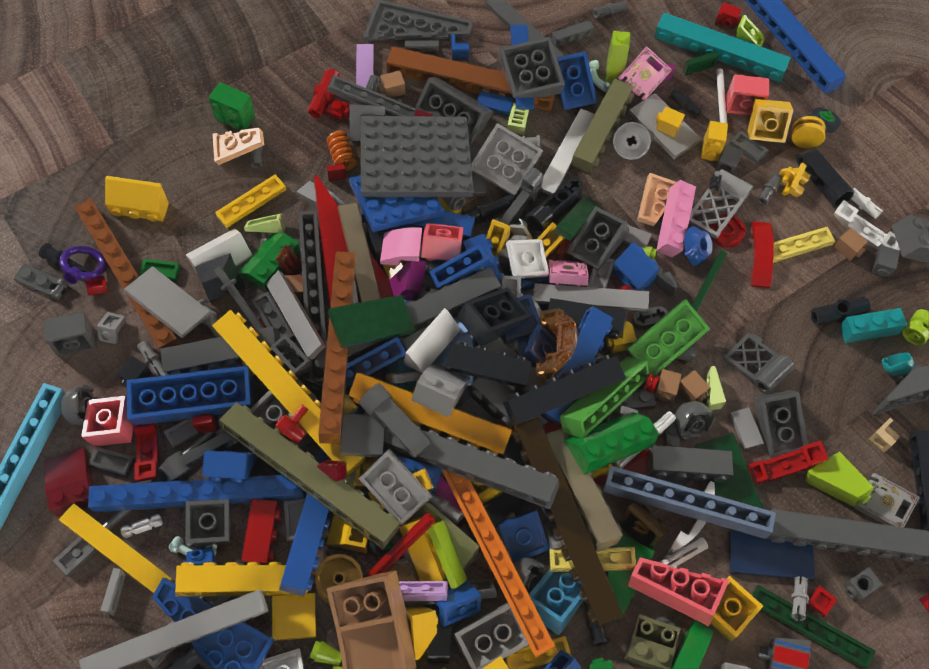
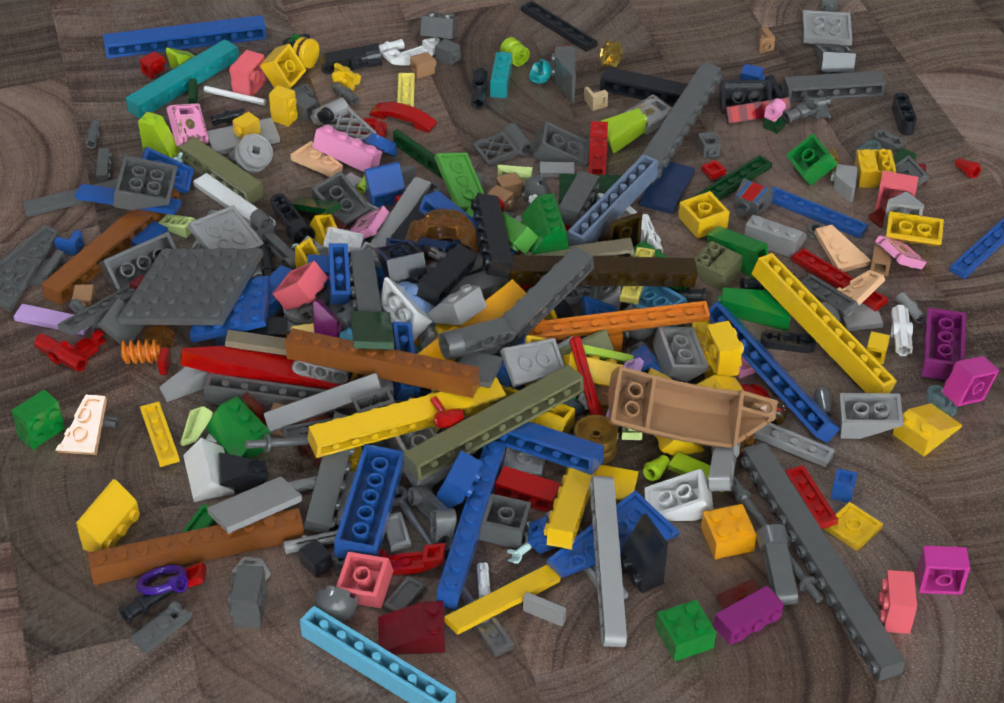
camera: 70 degrees left, 20 degrees down
(205, 423) = (402, 503): red plate -> none
(334, 469) = (501, 393): dark red slope -> none
(401, 245) = (294, 307): bright pink slope -> none
(678, 588) = (684, 224): coral wedge -> none
(800, 598) = (708, 178): light grey pin -> none

